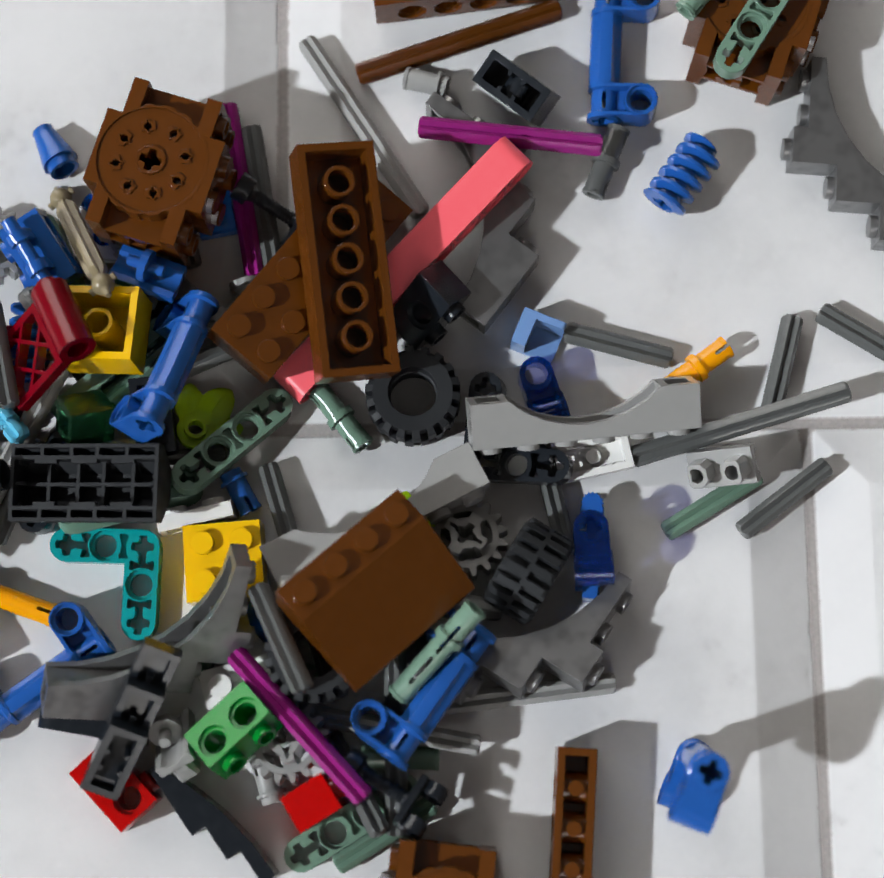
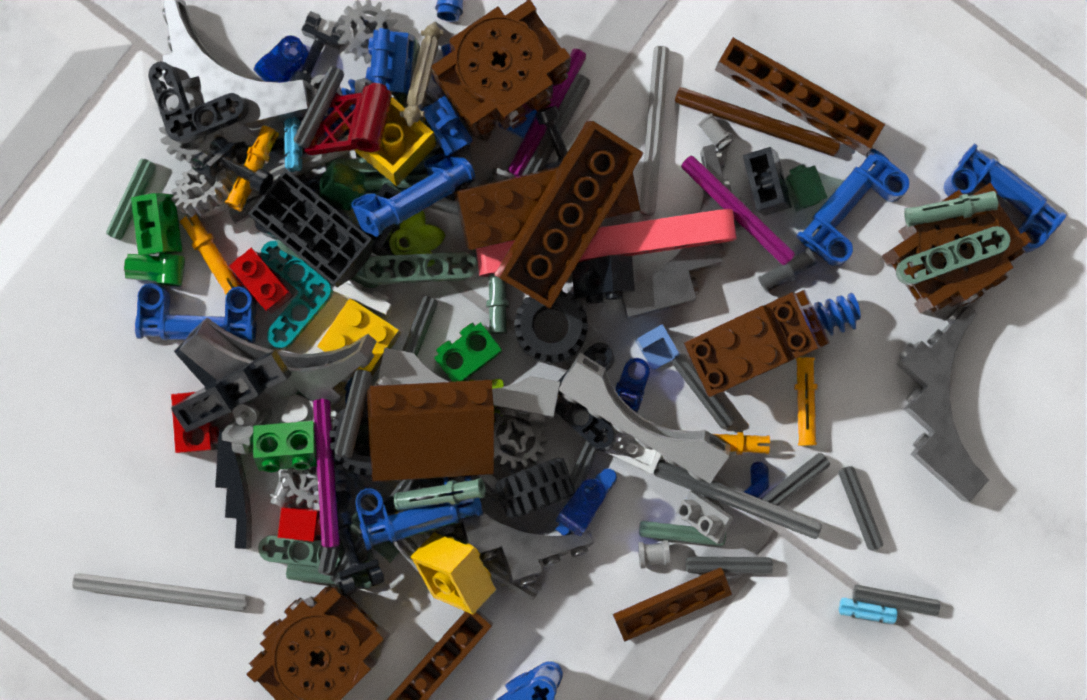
camera: 35 degrees right, 5 degrees up
(75, 582) = (261, 281): none -> red brick
(240, 490) = (402, 300): blue pin -> none
(359, 493) = (472, 360): none -> green brick
(514, 724) = (453, 572): none -> yellow brick
(558, 67) = (805, 187): none -> clear green brick
(635, 248) = (756, 342): none -> reddish brown piece
(701, 546) = (654, 554): none -> light grey bush
(728, 275) = (806, 366): none -> light orange pin
(744, 388) = (759, 479): none -> clear blue arm
(760, 582) = (672, 604): none -> reddish brown plate

